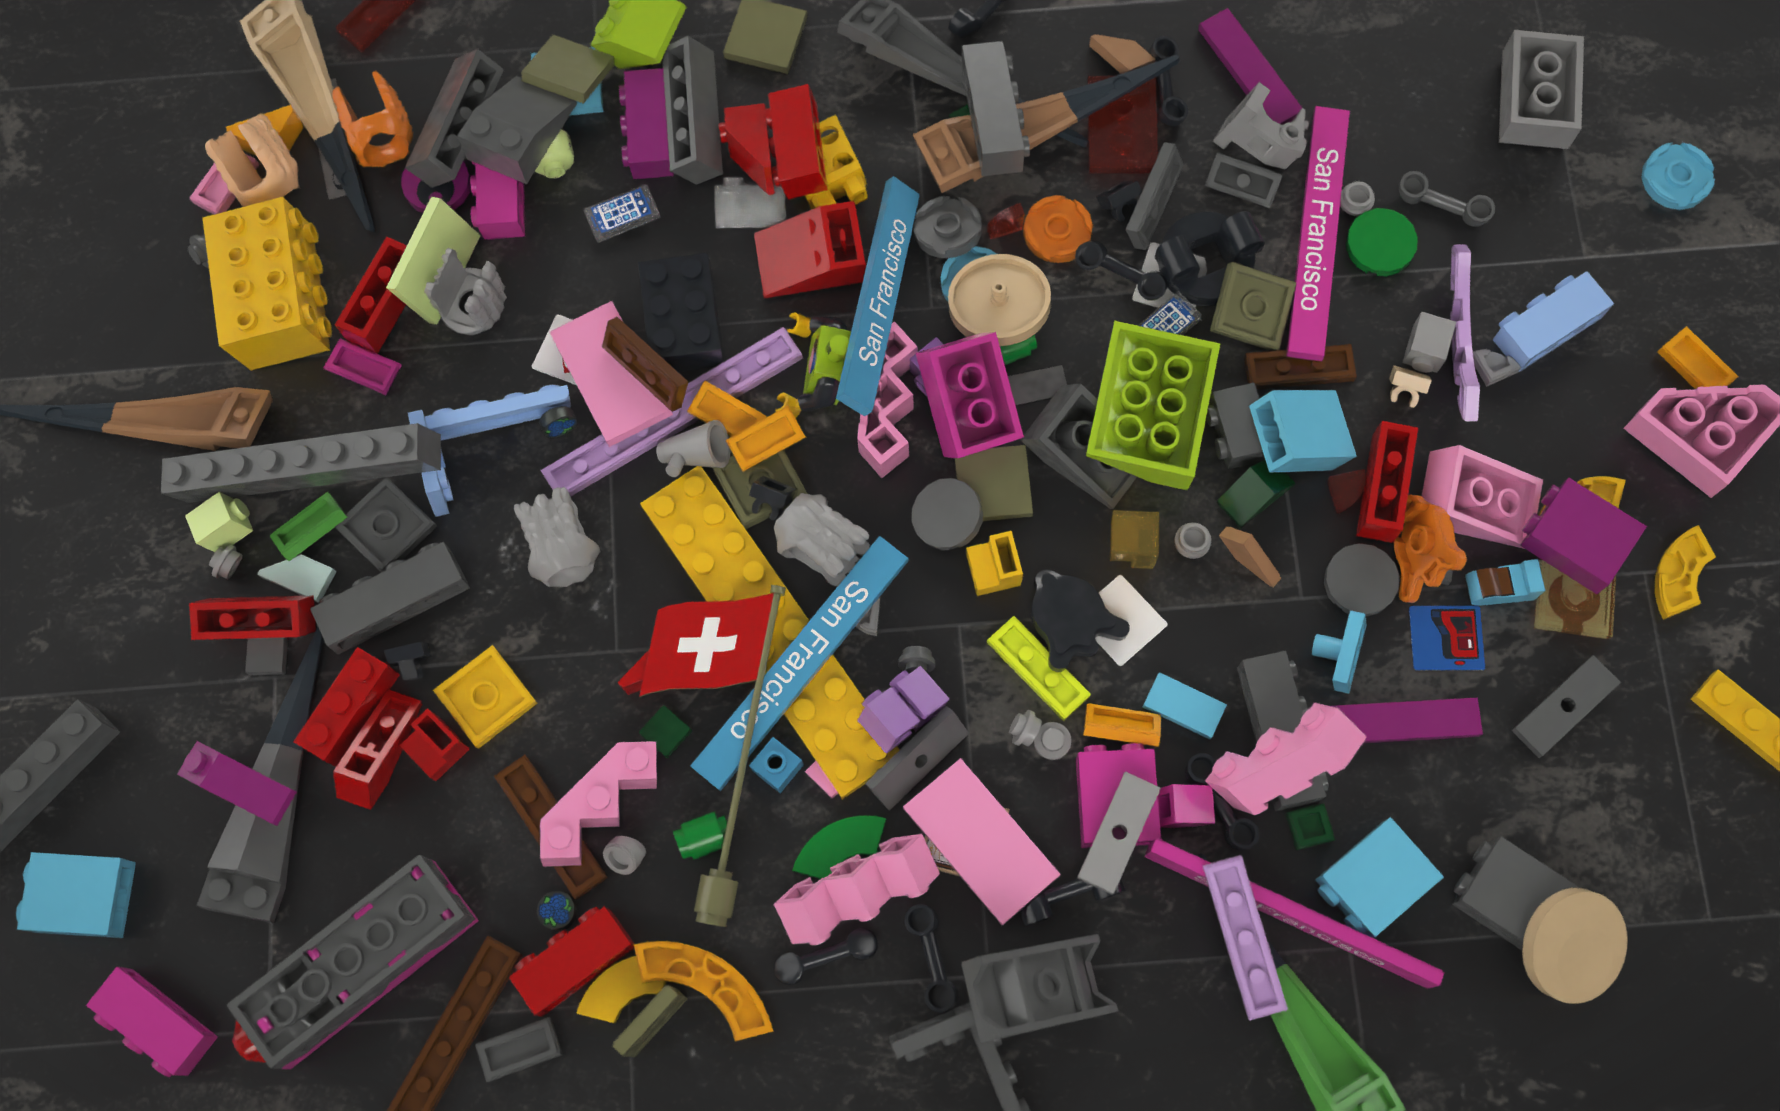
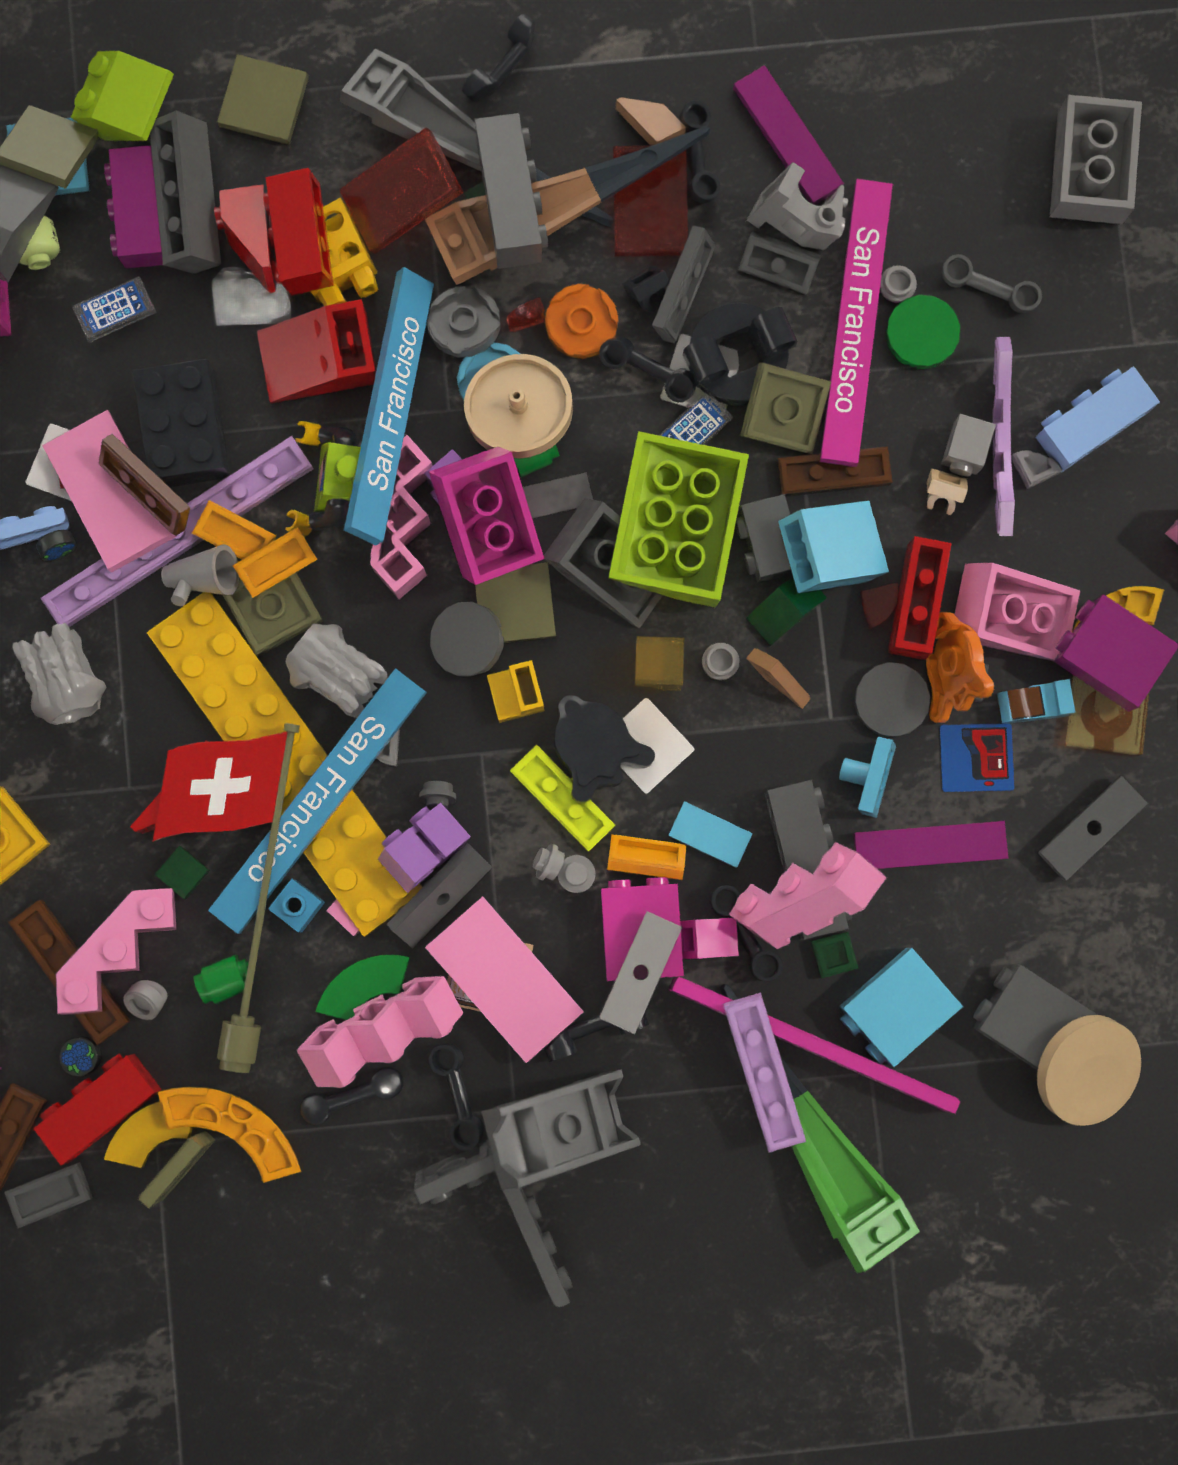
camera: 10 degrees left, 10 degrees up
(771, 492) = (283, 622): black tile -> none
(891, 110) = (400, 190): none -> clear red tile

